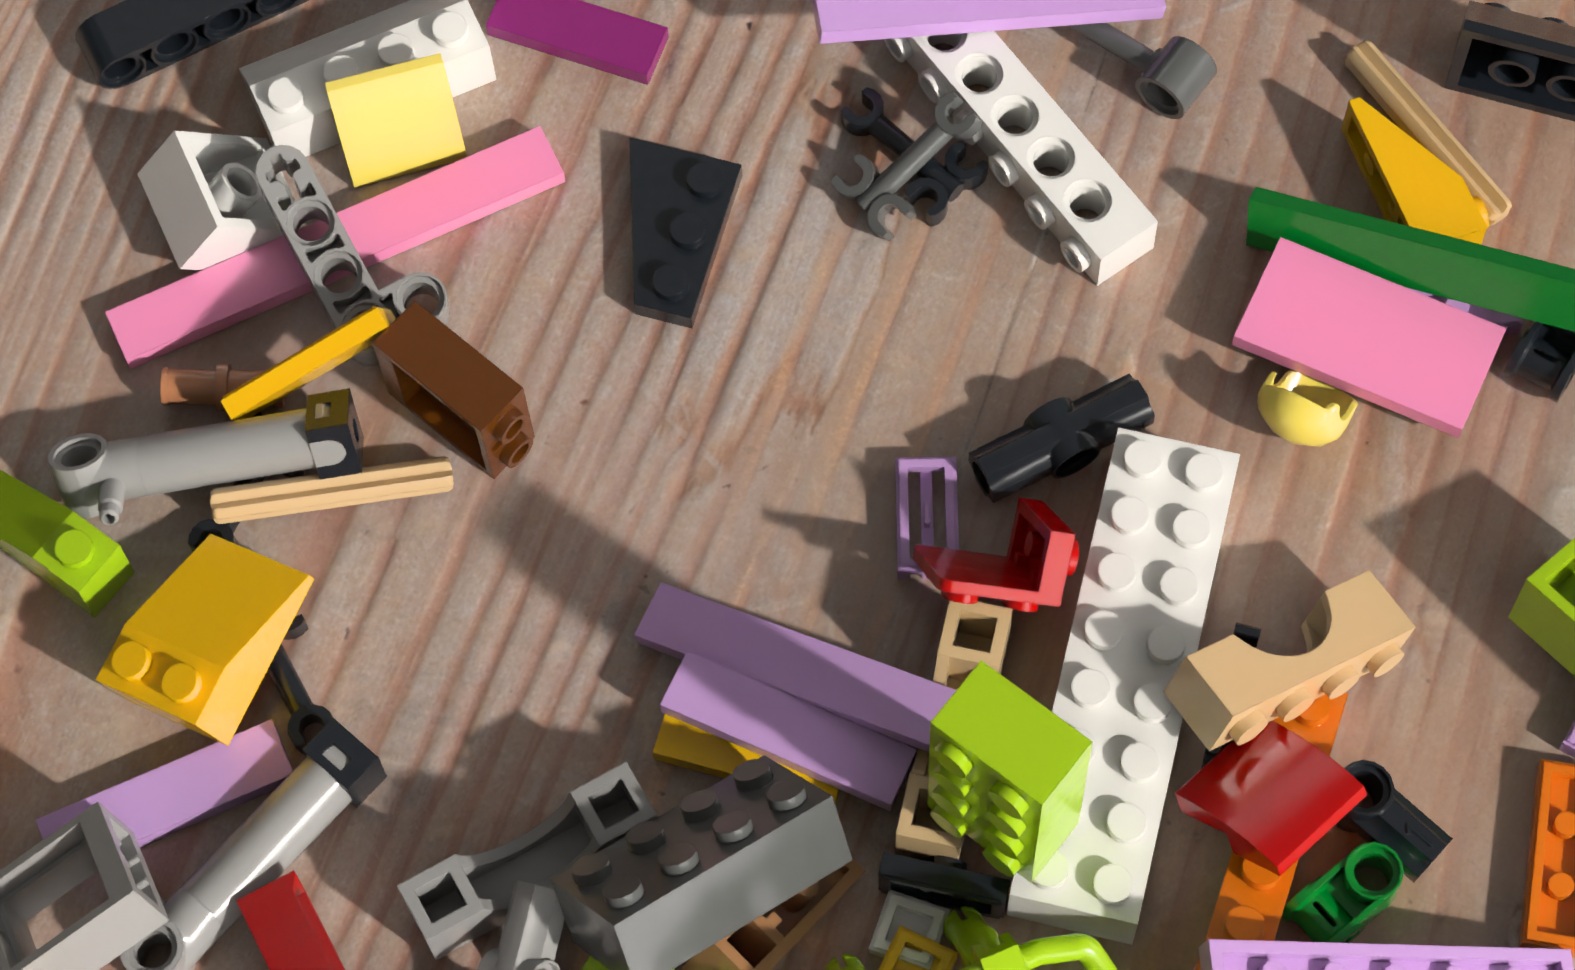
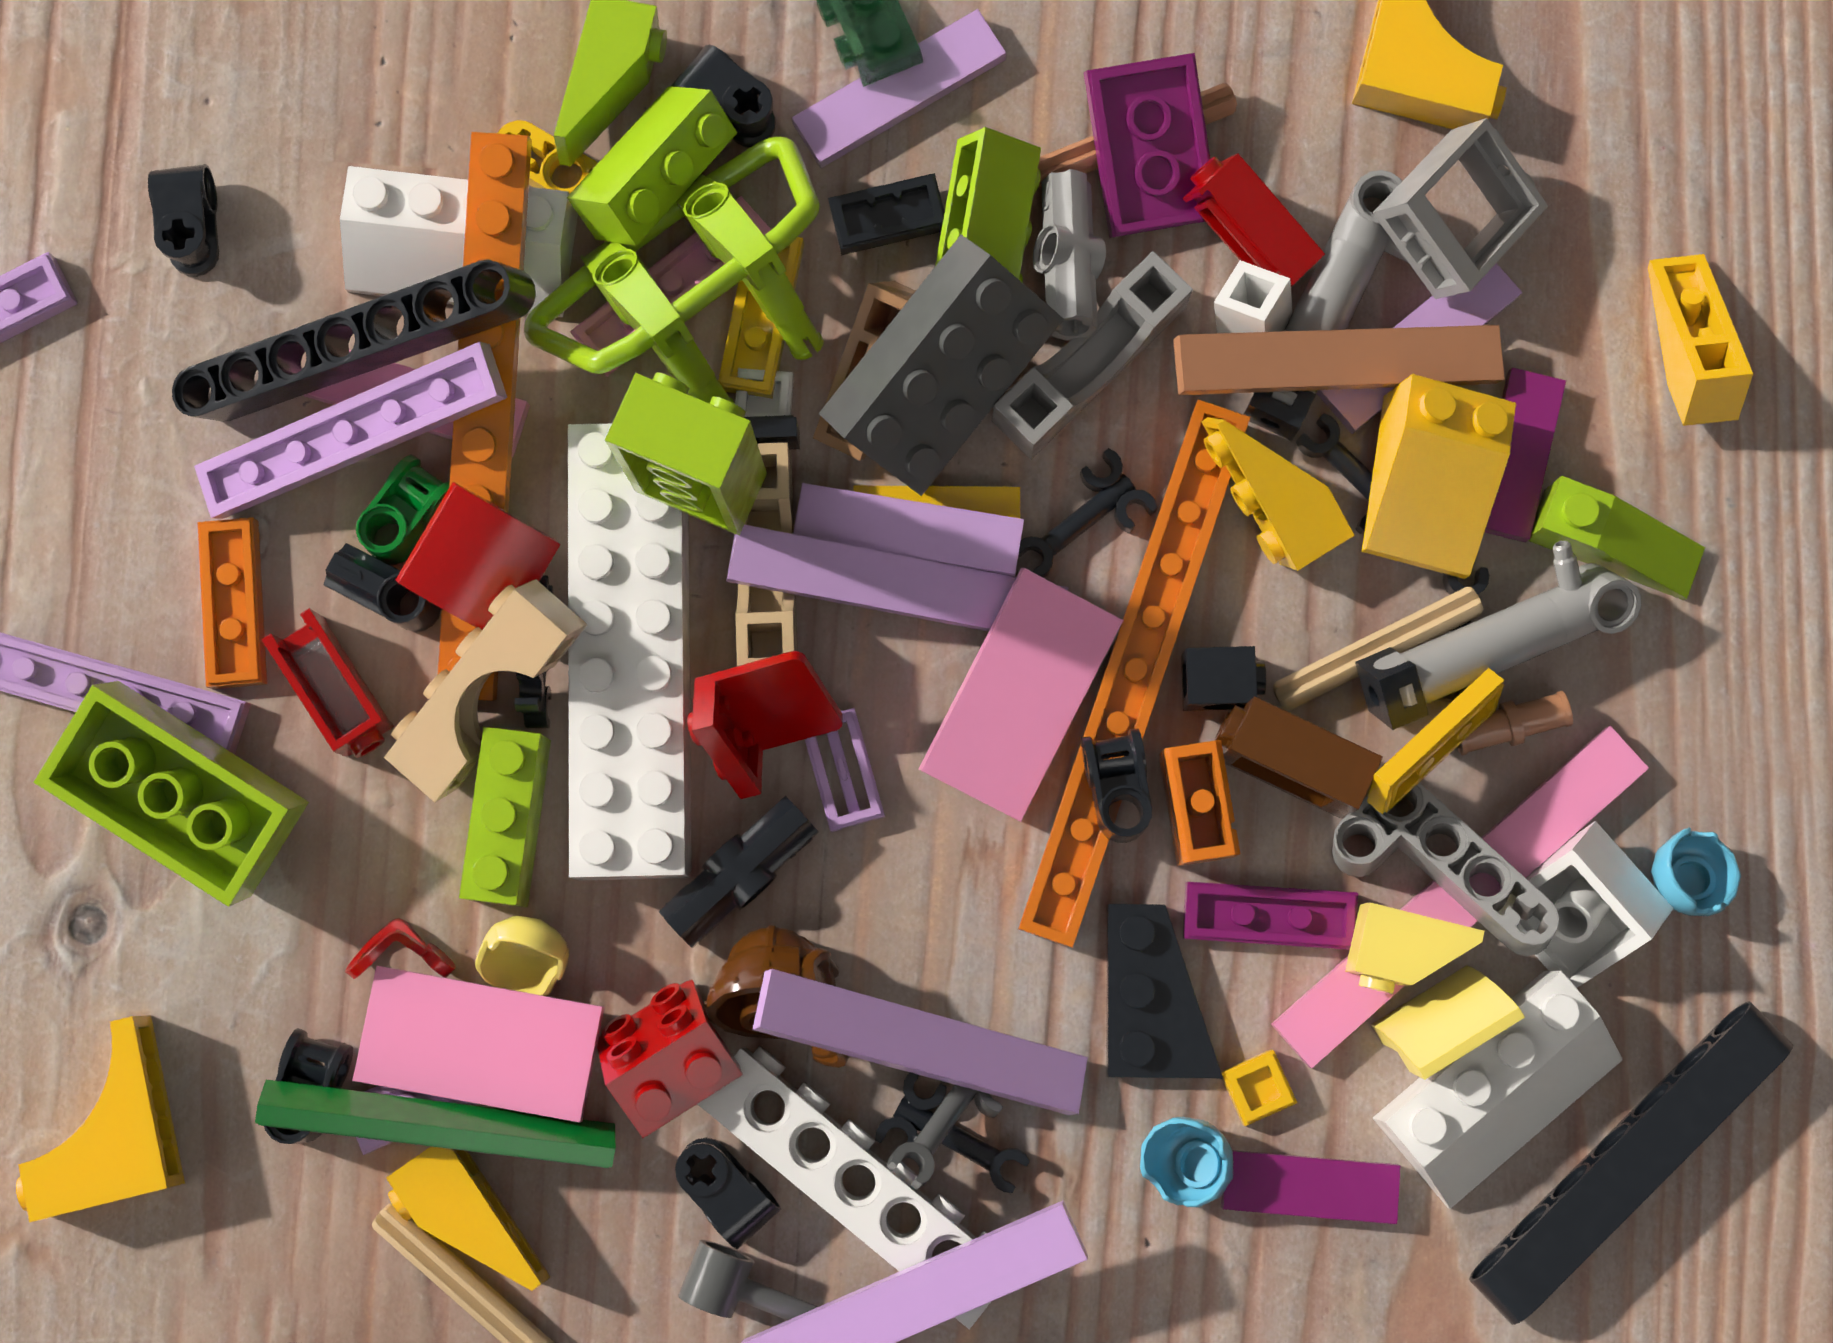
camera: 165 degrees right, 15 degrees up
(73, 700) = (1535, 420): none -> magenta tile
(101, 201) = (1696, 873): none -> medium azure hair
(266, 775) = (1336, 359): none -> nougat tile
(336, 864) = (1253, 301): none -> white brick
(373, 656) = (1289, 505): none -> yellow slope
(409, 196) = (1403, 946): none -> light yellow slope
(504, 499) = (1221, 677): none -> black brick
(532, 274) = (1269, 915): none -> magenta tile
(553, 725) = (1113, 492): none -> black bar
(568, 378) = (1199, 802): none -> orange brick
(584, 540) = (1132, 675): none -> orange plate
(597, 126) = (1258, 1087): none -> yellow tile
(642, 415) = (1118, 780): none -> black piece
(687, 69) = (1187, 1161): none -> medium azure hair
(717, 535) = (1021, 694): none -> bright pink tile
(920, 211) = (919, 1042): none -> lavender tile
(1047, 319) = (738, 984): none -> reddish brown head
(1149, 154) = (733, 1199): none -> black piece
(1181, 274) = (664, 1058): none -> red bracket
(1297, 544) = (505, 817): none -> lime brick
(1401, 438) = (408, 937): none -> red piece
(1465, 731) = (330, 687): none -> red window

